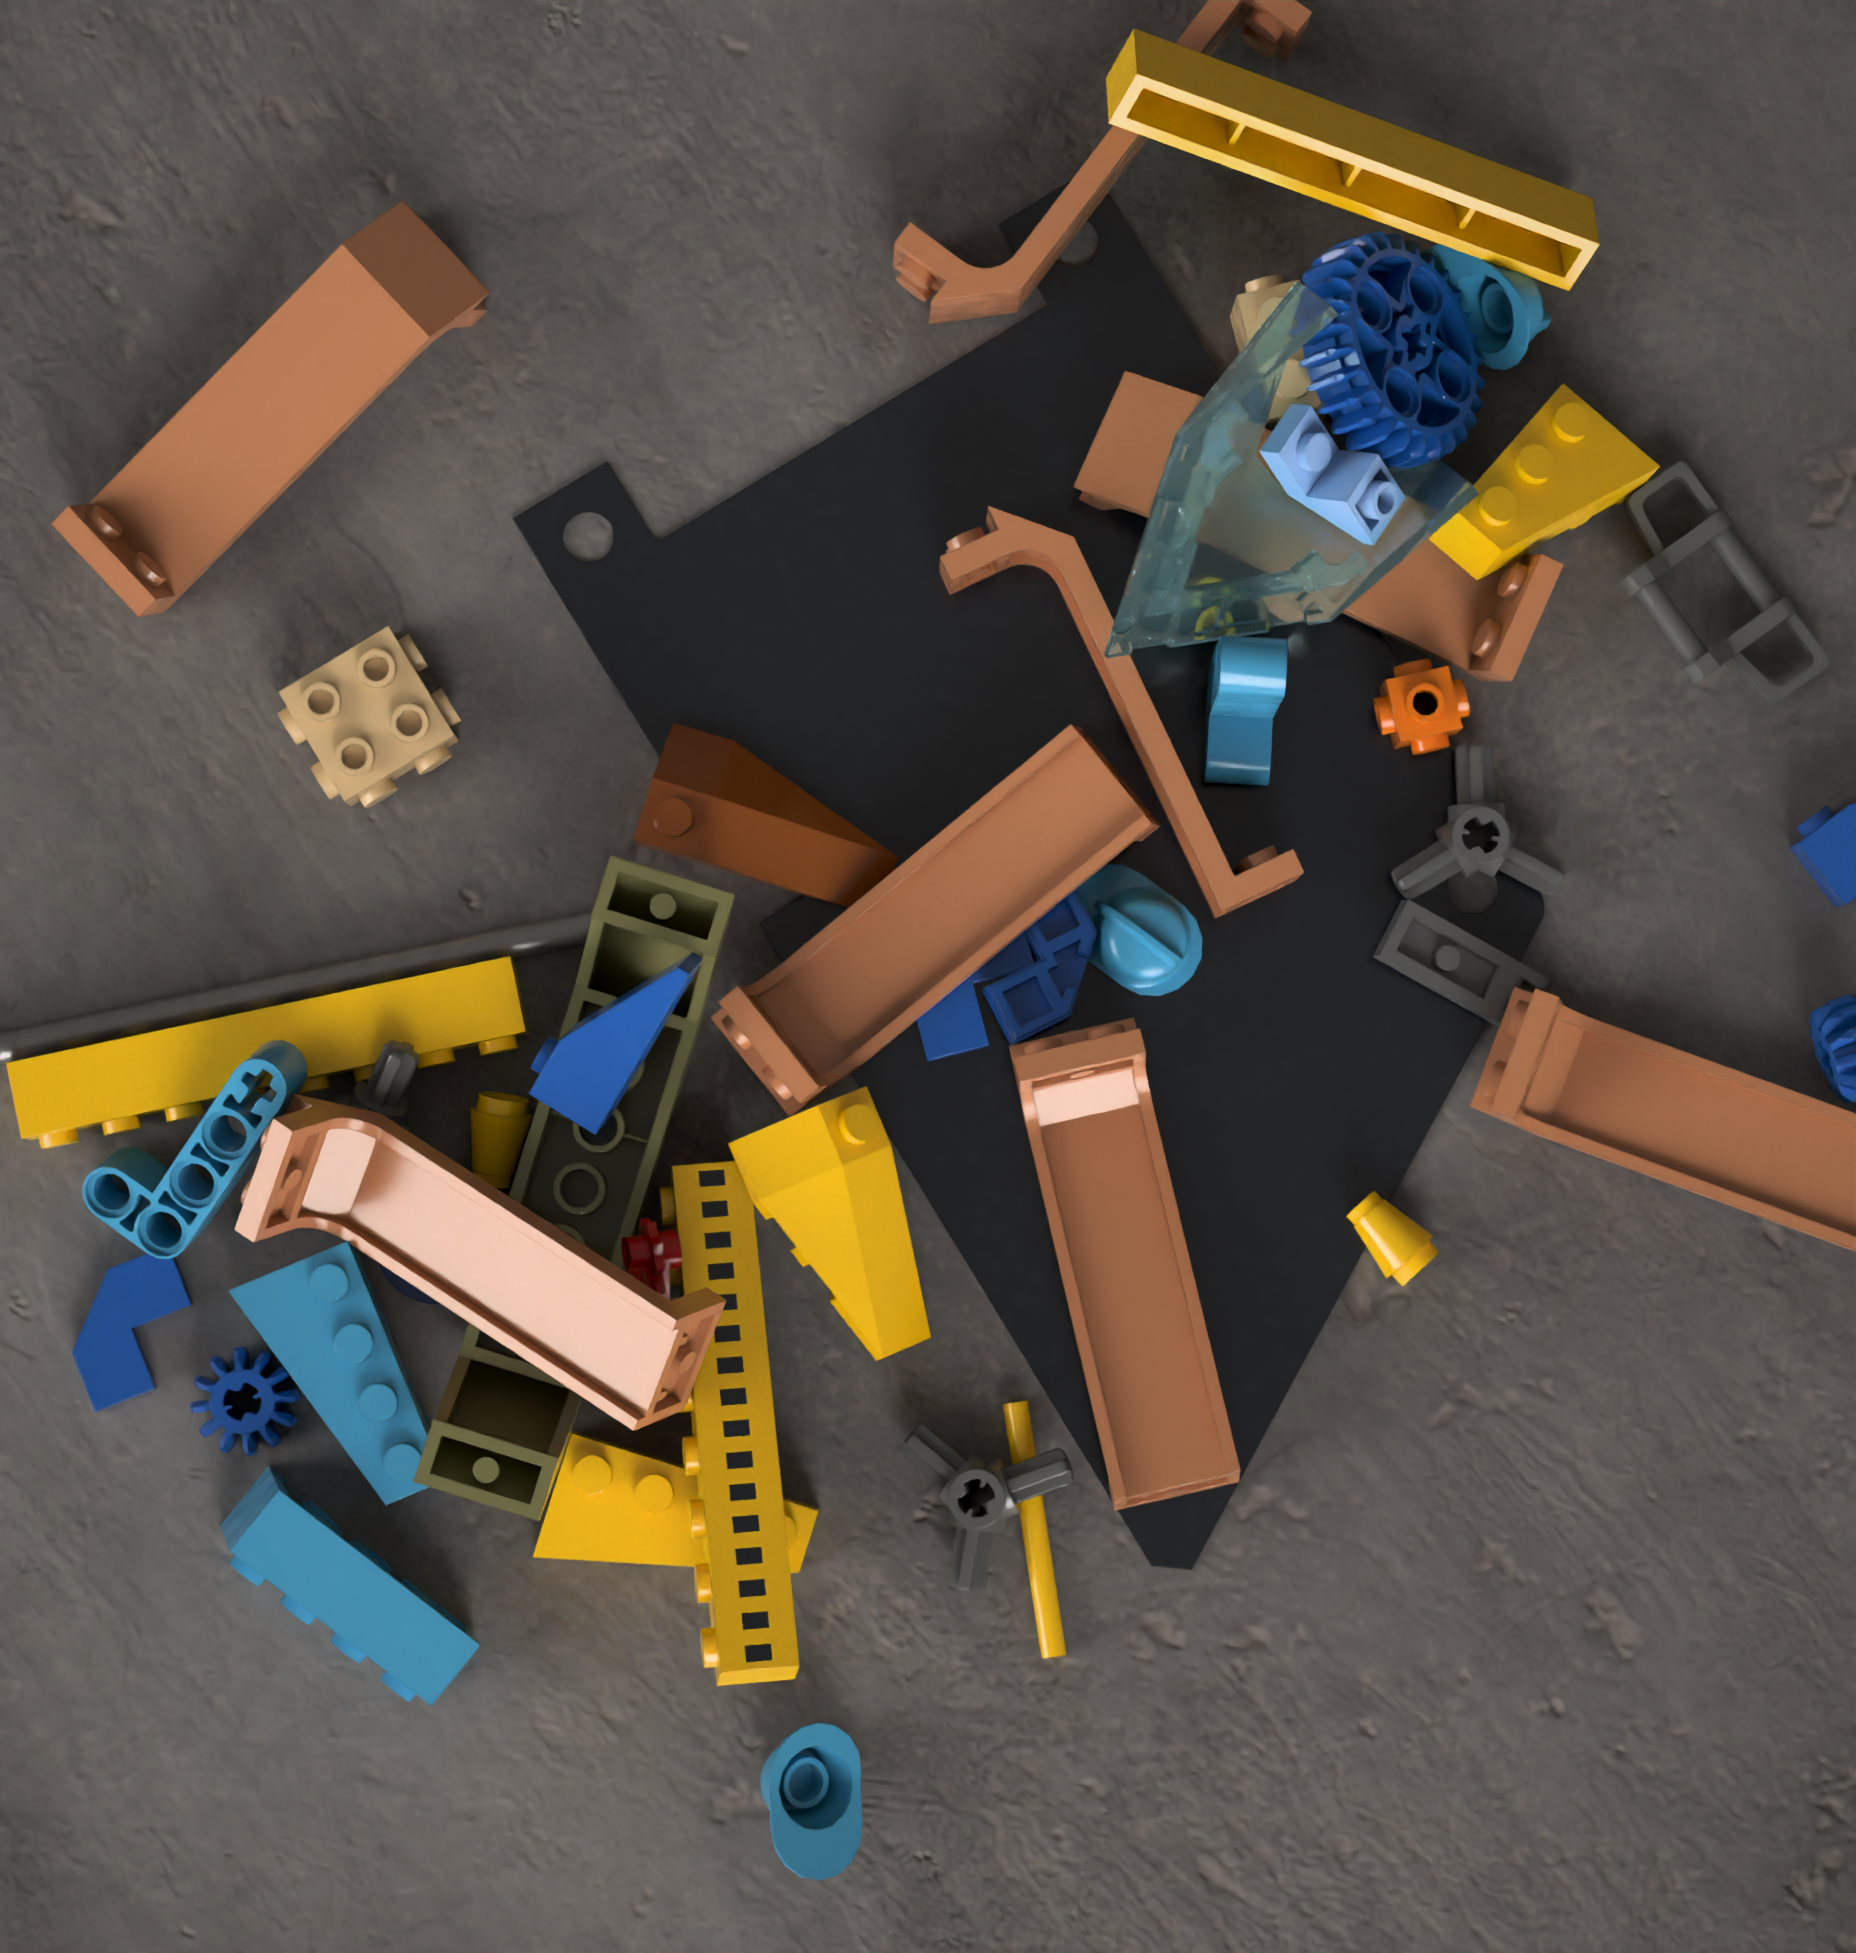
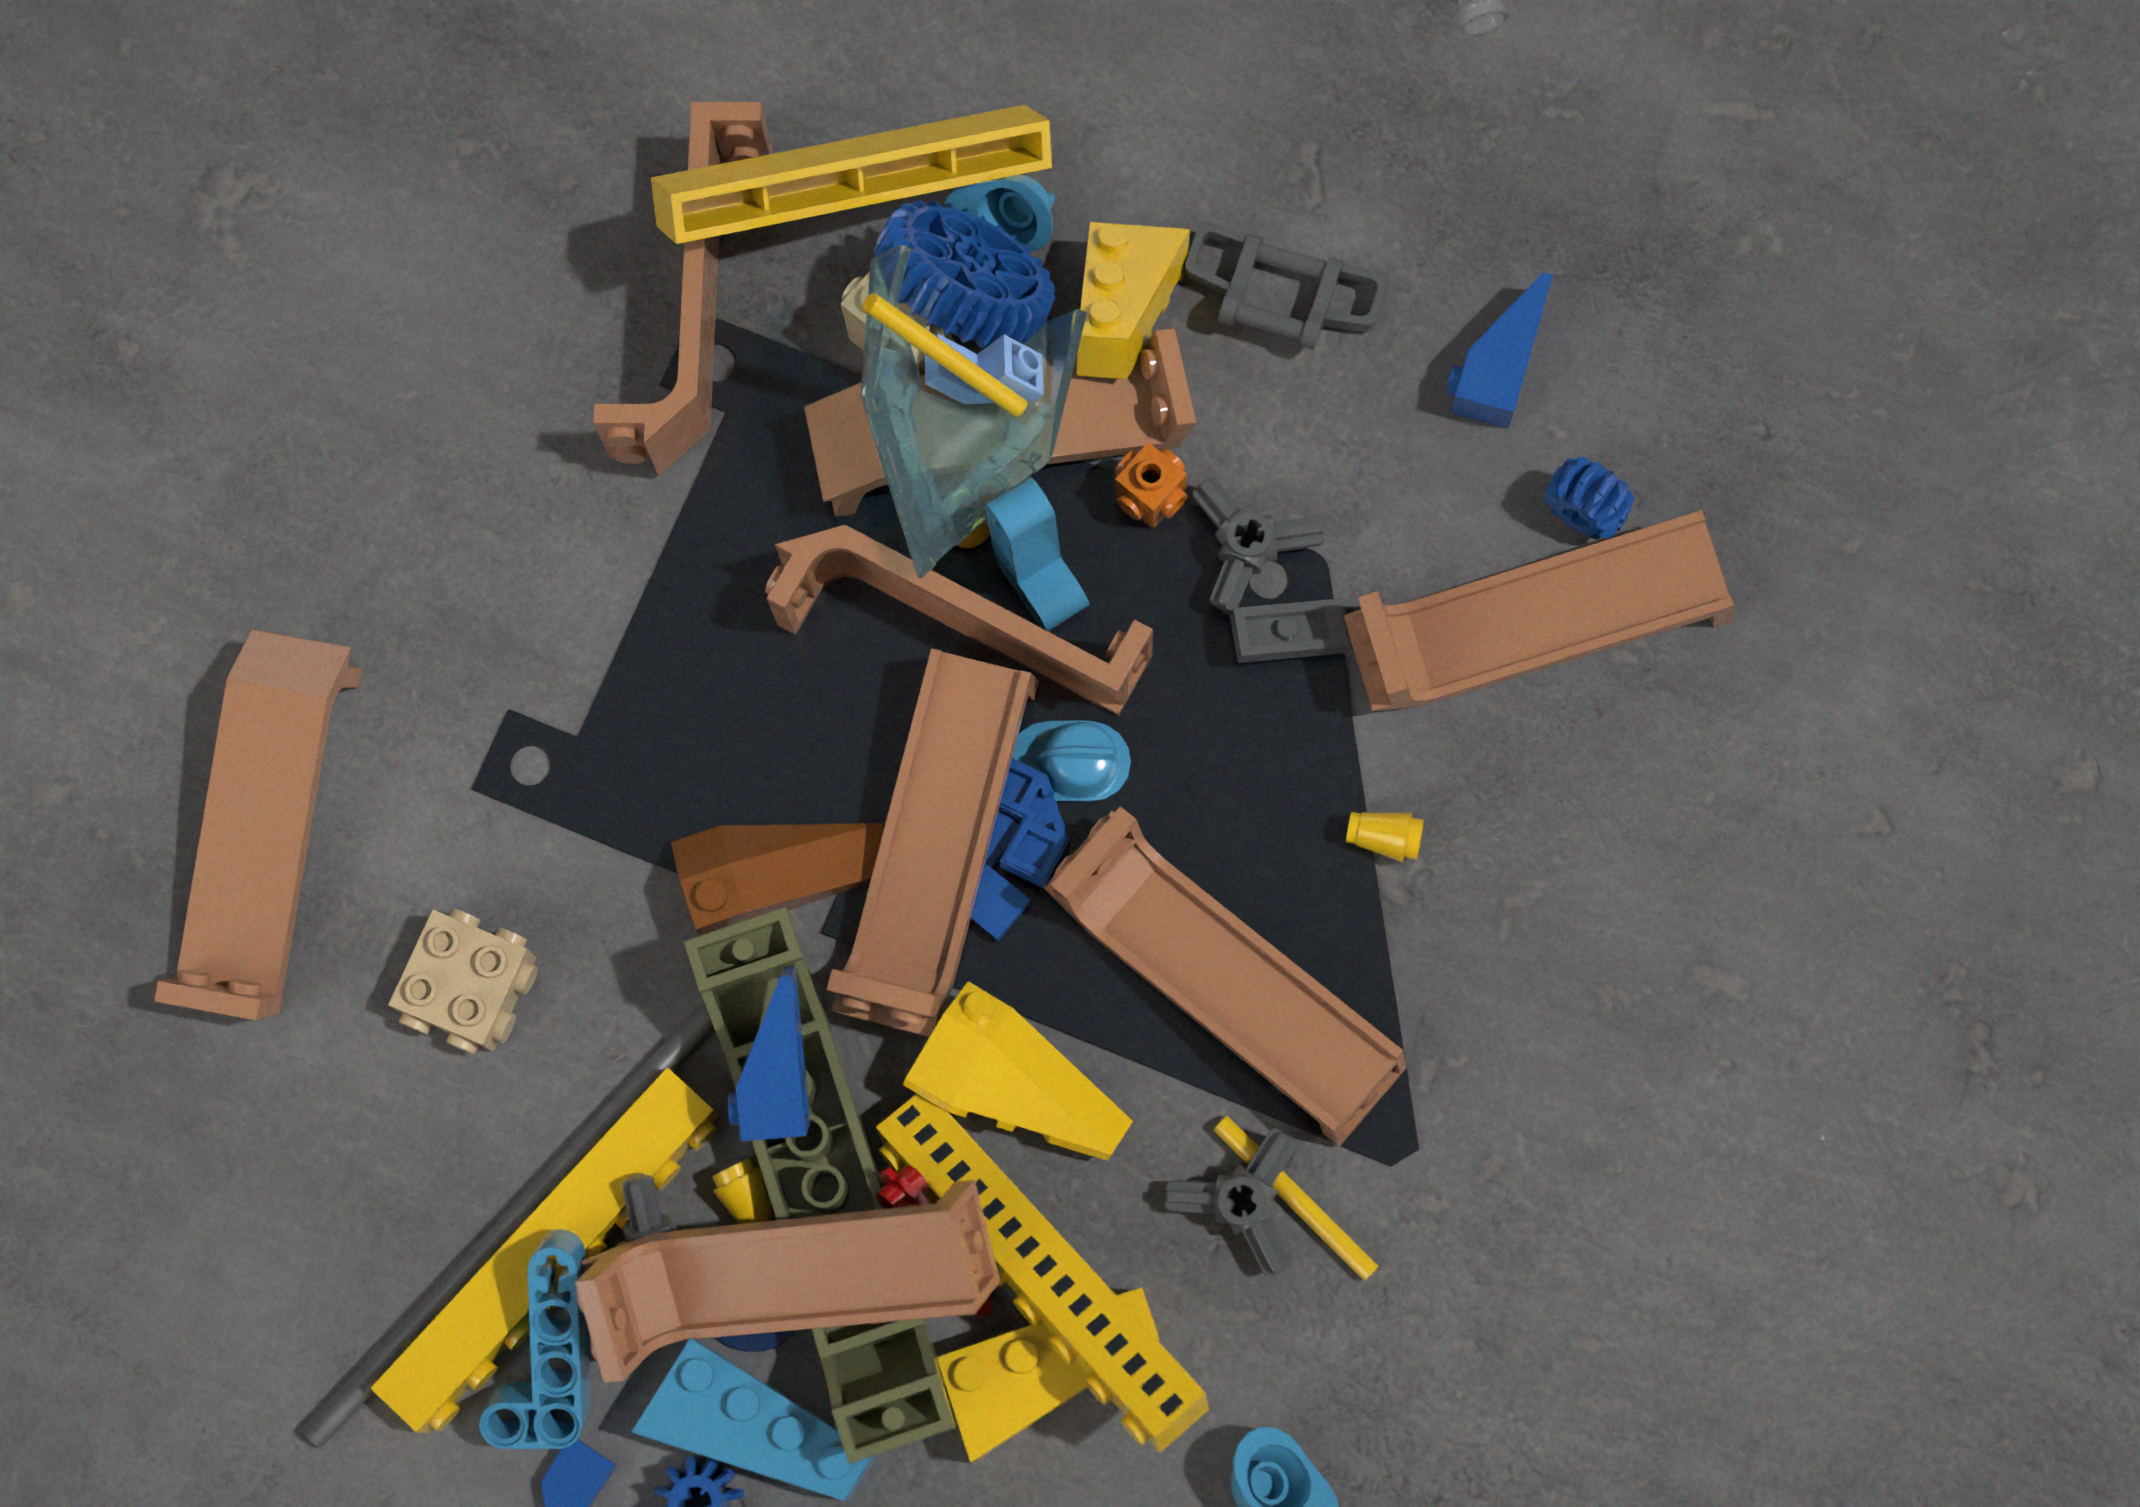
camera: 25 degrees left, 10 degrees down
(1295, 445) = (944, 354): none -> yellow bar

